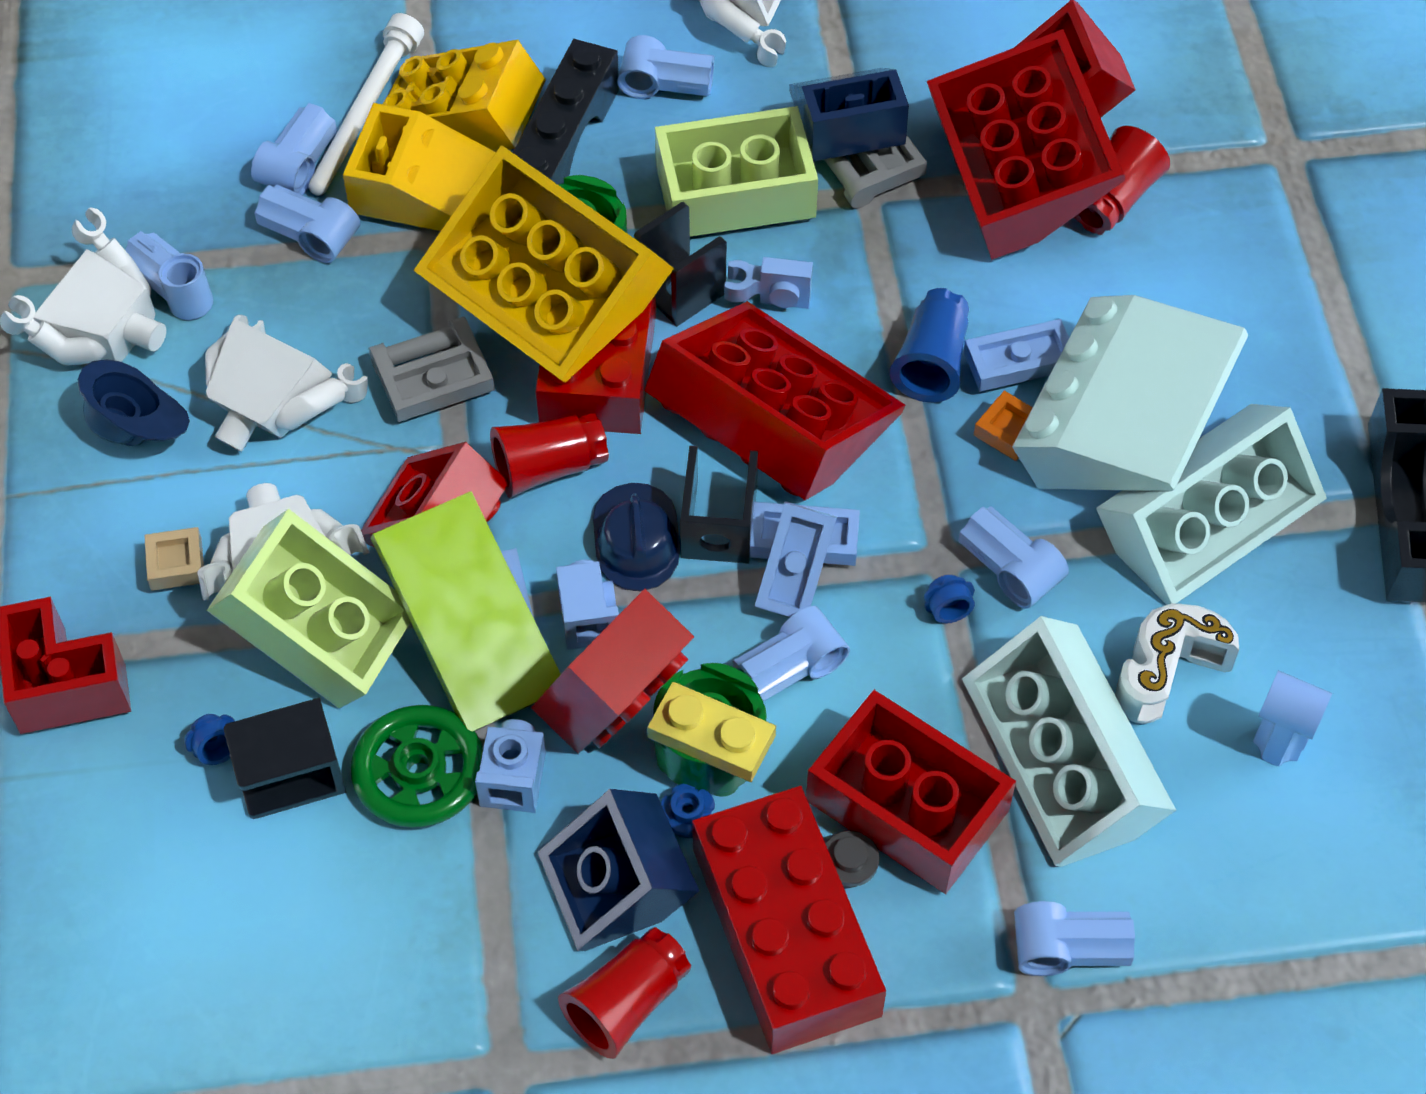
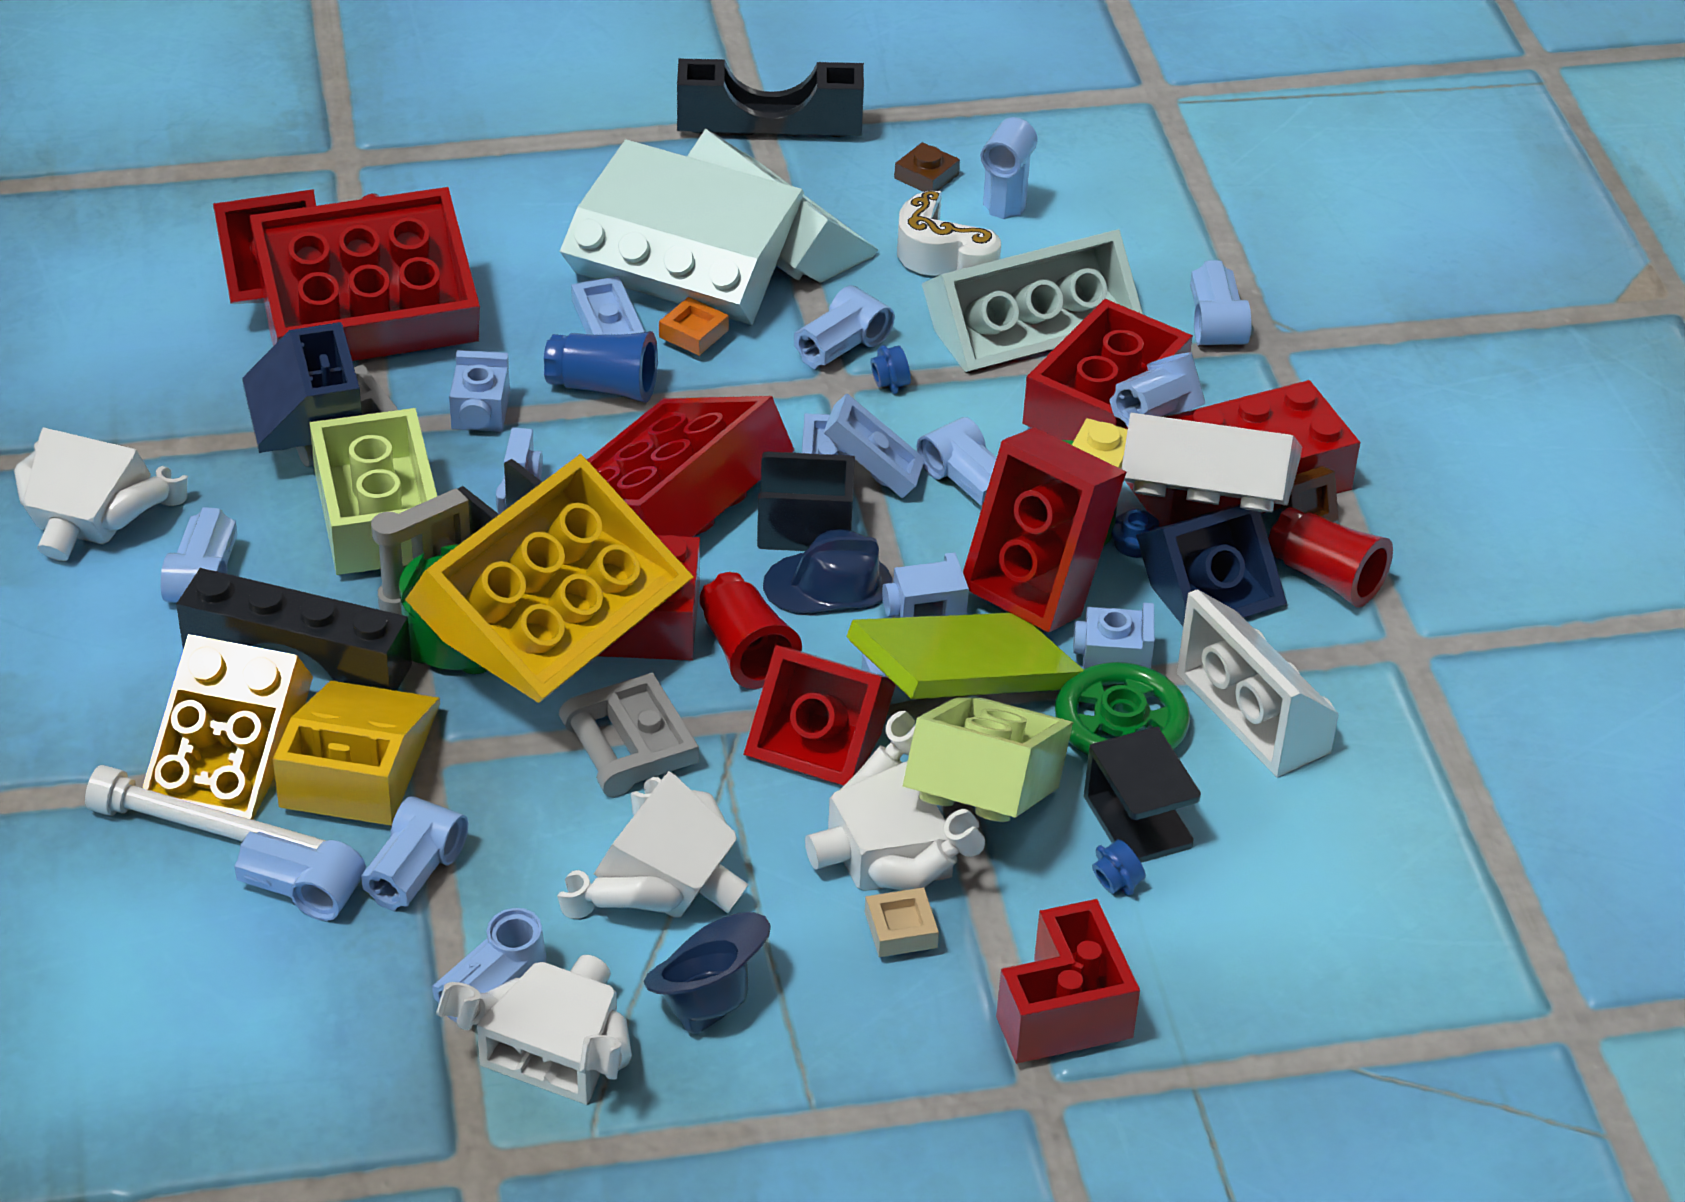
camera: 95 degrees left, 15 degrees down
(419, 875) = (1253, 687): none -> white slope
(637, 187) = (429, 526): none -> light grey plate
(691, 834) = (1210, 461): none -> white slope
(719, 983) = (1315, 493): none -> reddish brown plate
(849, 824) = (1163, 390): none -> light blue piece
(893, 253) = (480, 391): none -> light blue brick
(1329, 661) = (927, 168): none -> reddish brown plate

